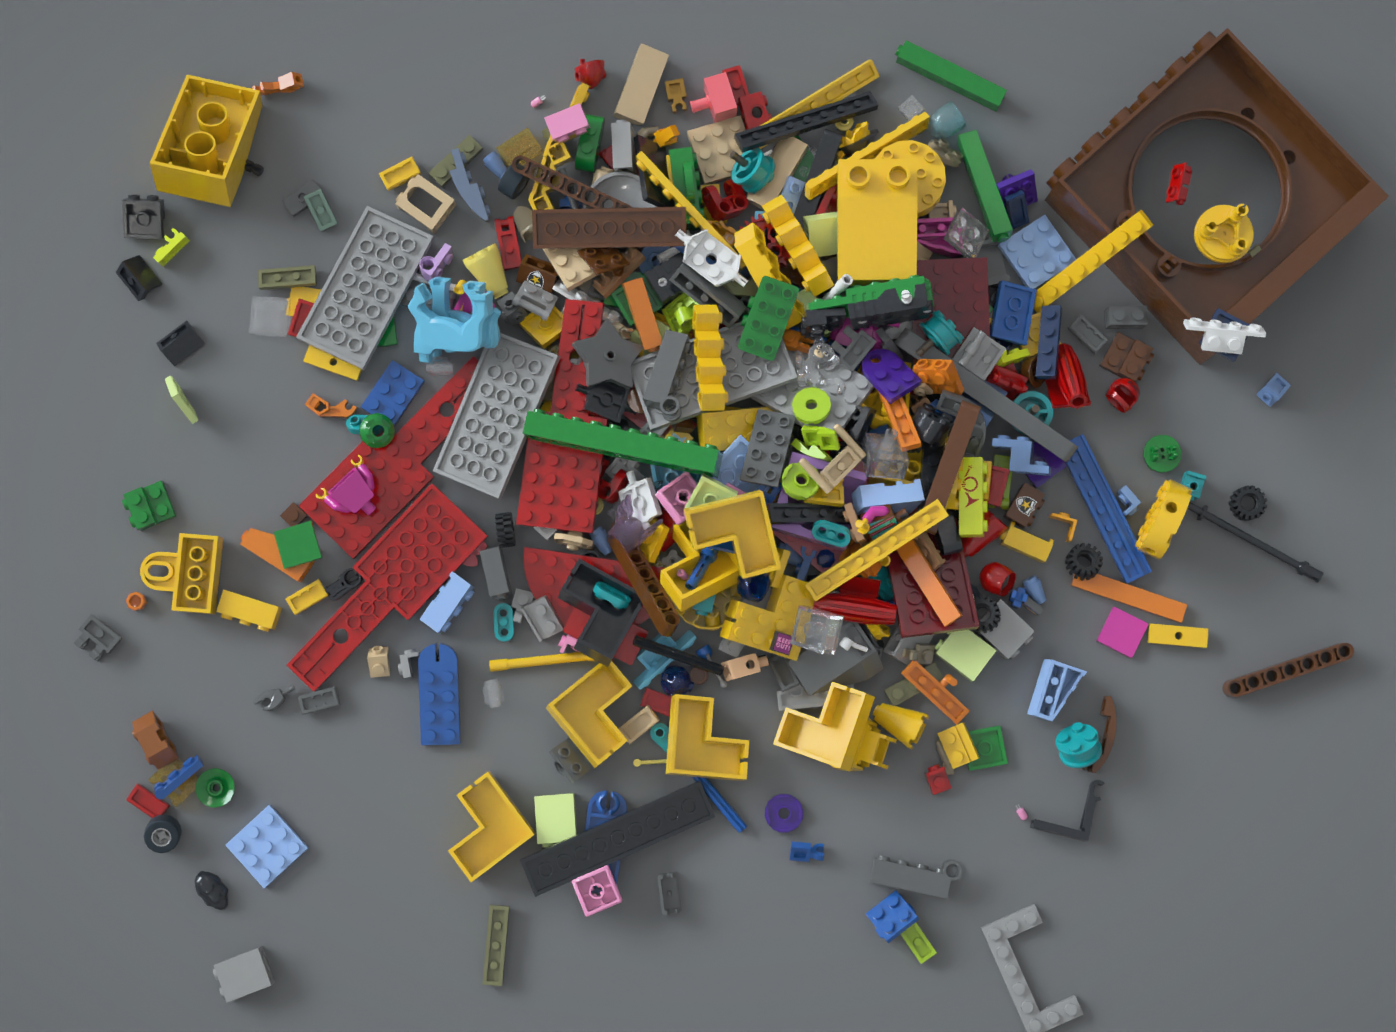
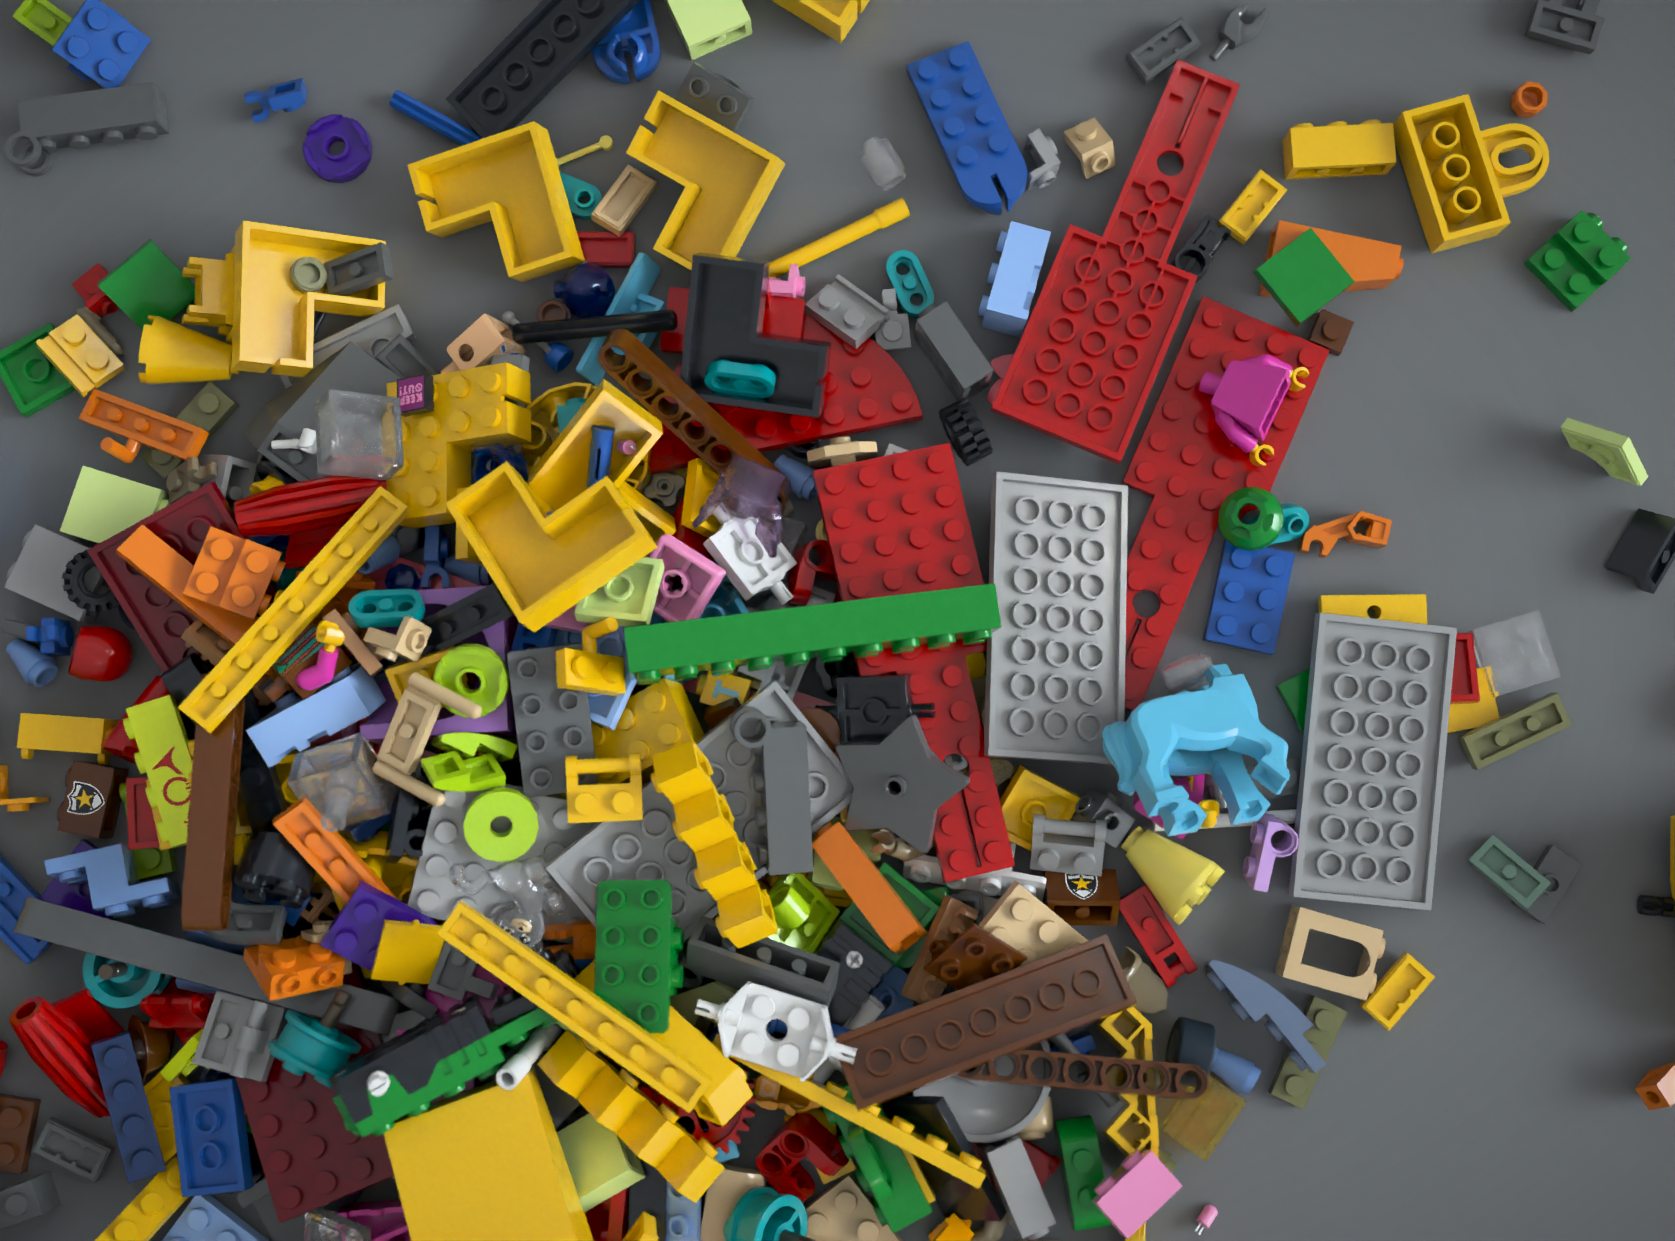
camera: 165 degrees right, 0 degrees up
(739, 464) = (588, 669): none -> yellow plate
(754, 398) = (604, 801): none -> yellow plate
(792, 730) = (359, 270): none -> dark grey plate
(802, 301) = (575, 1006): none -> yellow plate
(820, 738) = (307, 275): none -> olive tile
(825, 509) = (407, 643): none -> tan bracket
(879, 361) = (407, 952): none -> yellow piece
(905, 583) = (234, 574): none -> orange plate
(908, 767) = (148, 285): none -> green tile

